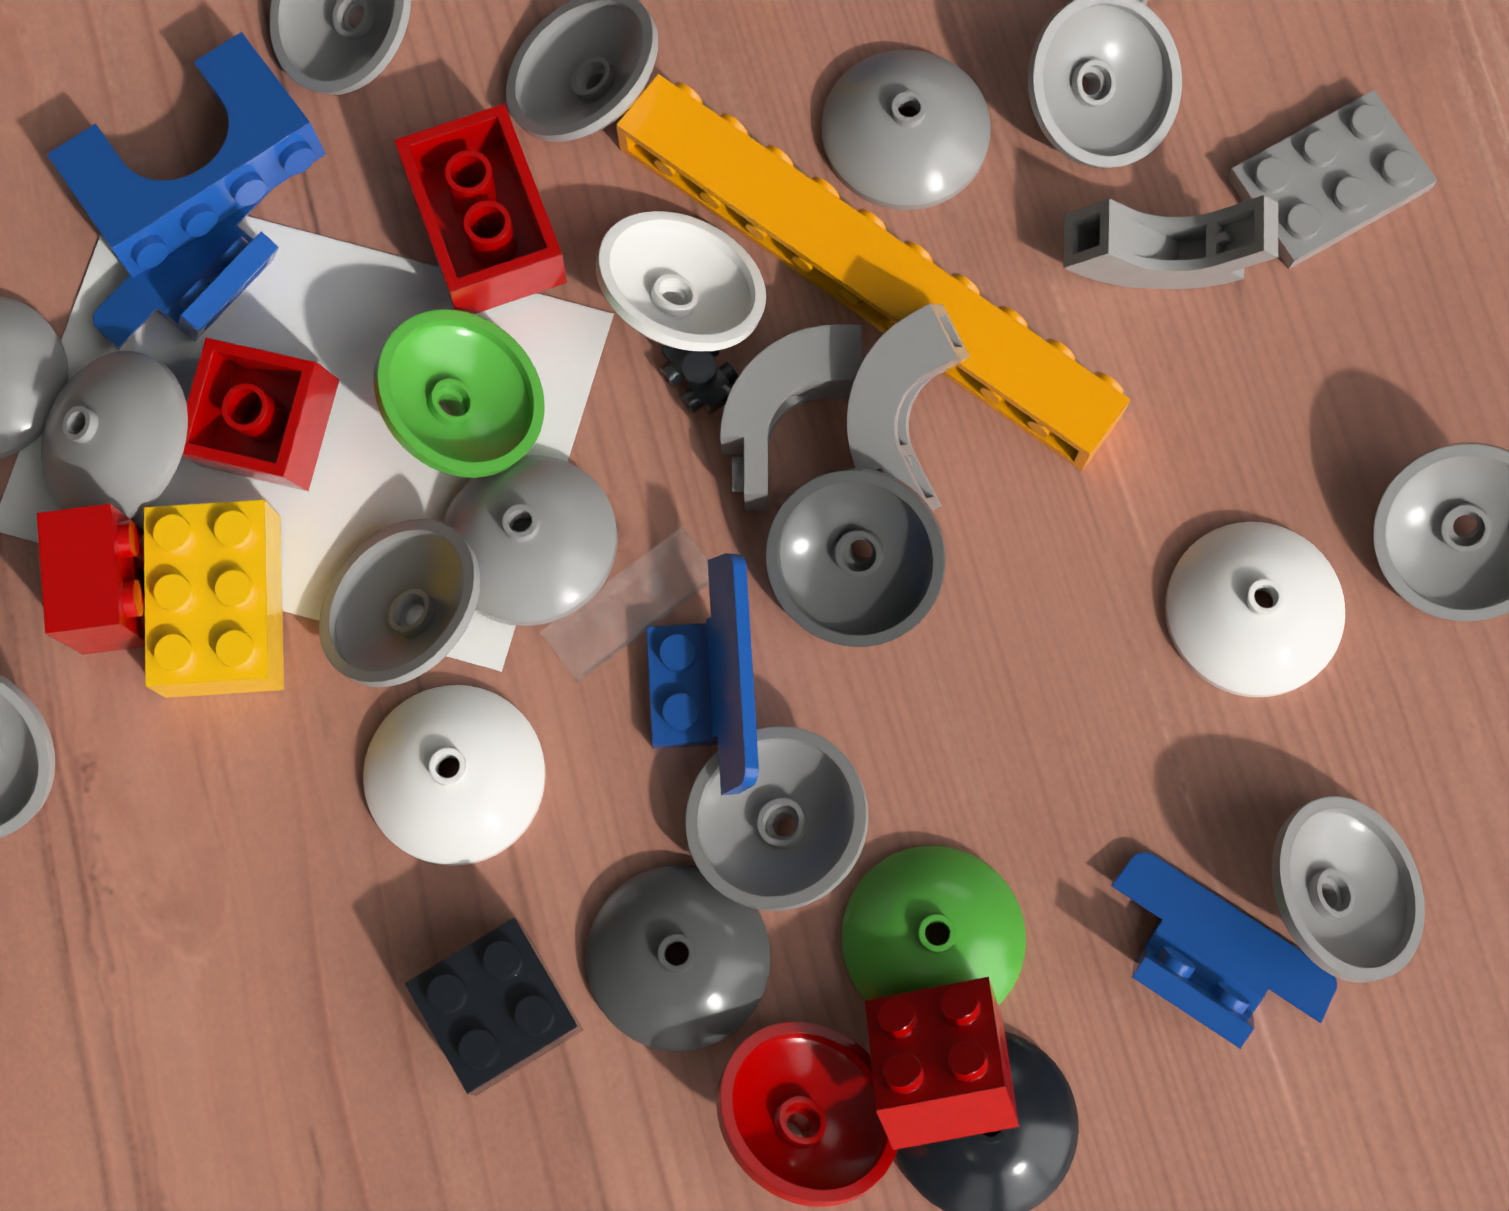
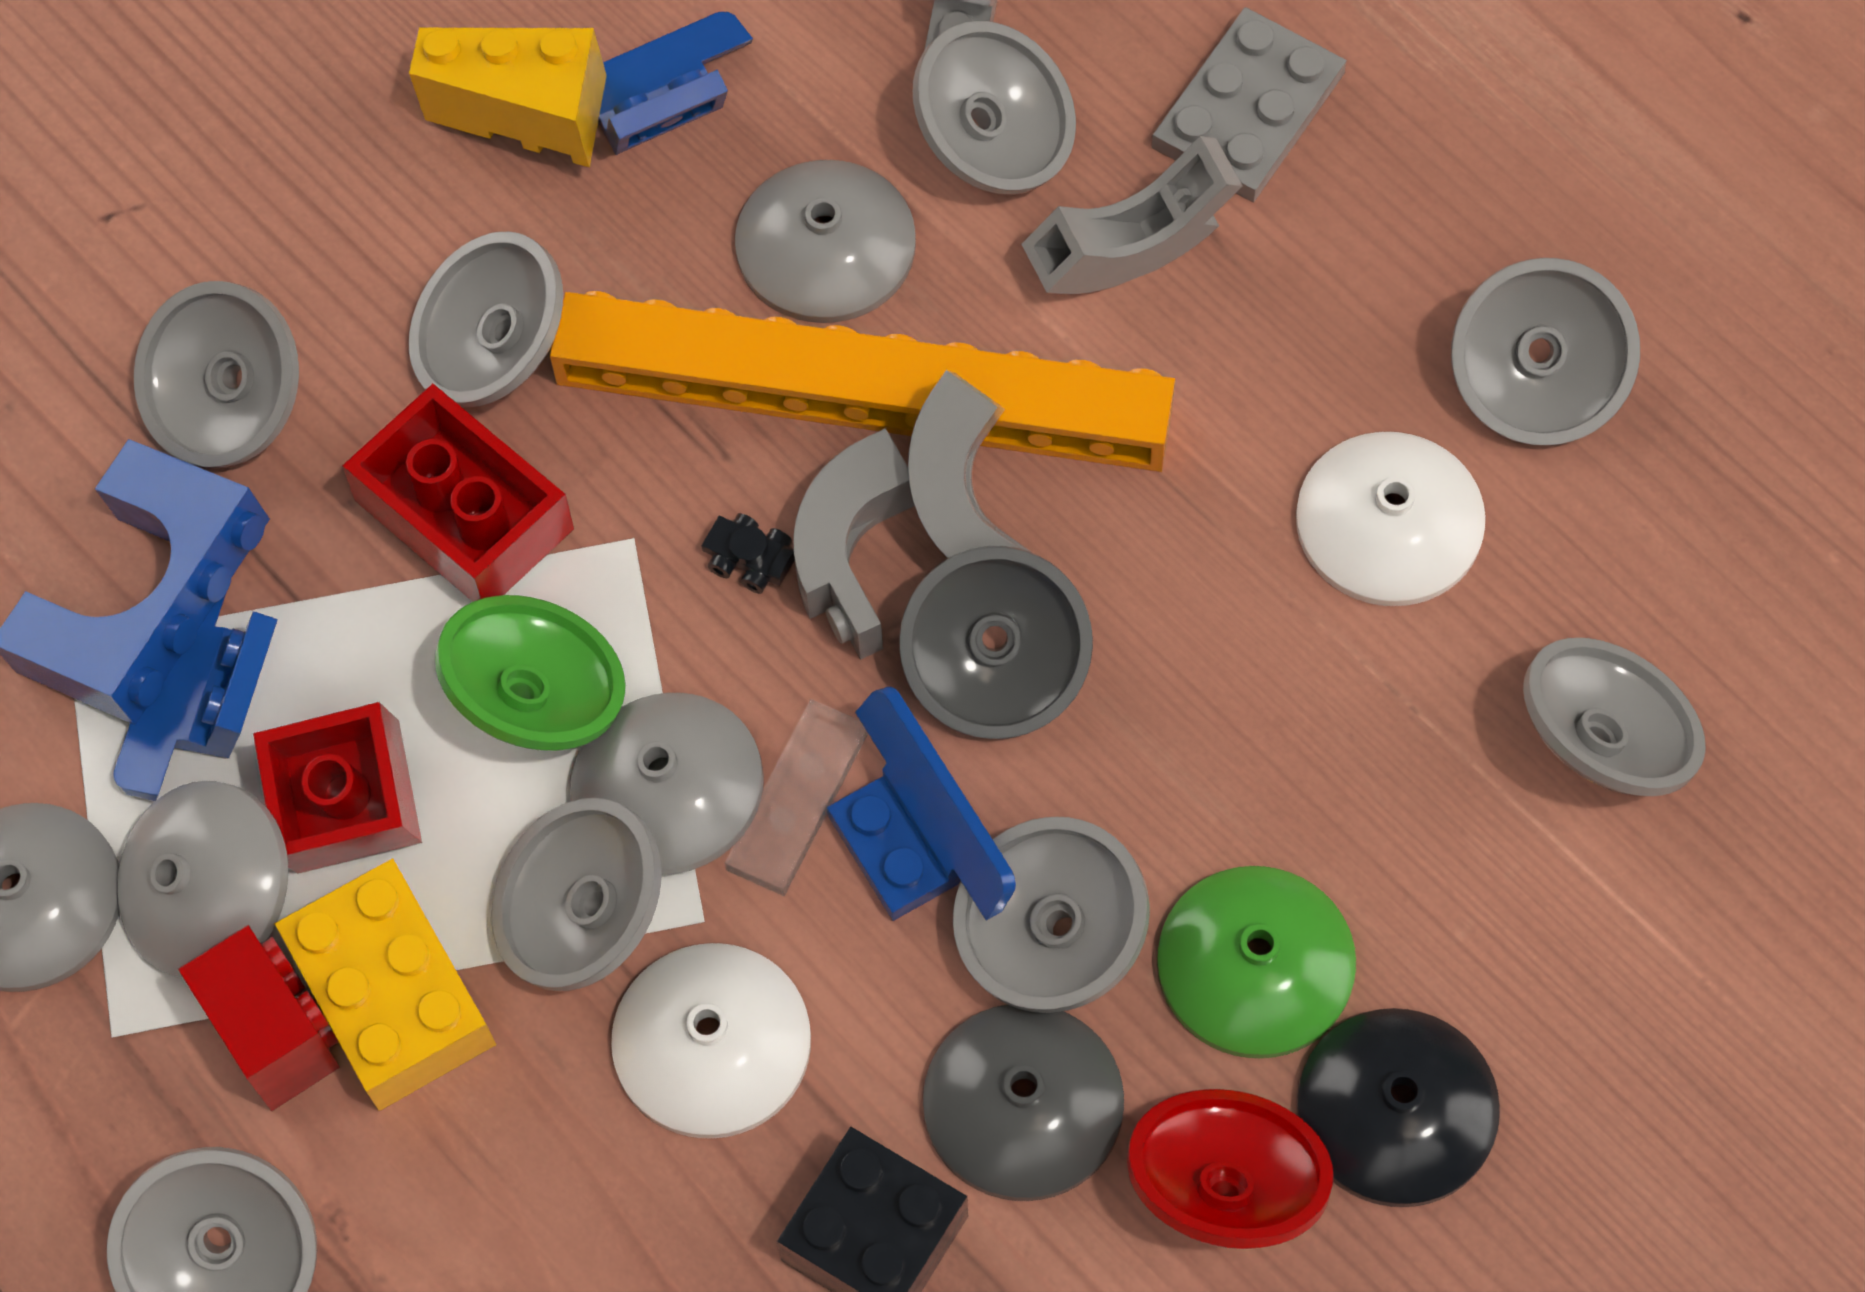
camera: 25 degrees left, 10 degrees down
(680, 281) = (690, 471): white dish -> none
(940, 1064) = (1330, 1055): red brick -> none
(1213, 955) = (1526, 840): blue plate -> none

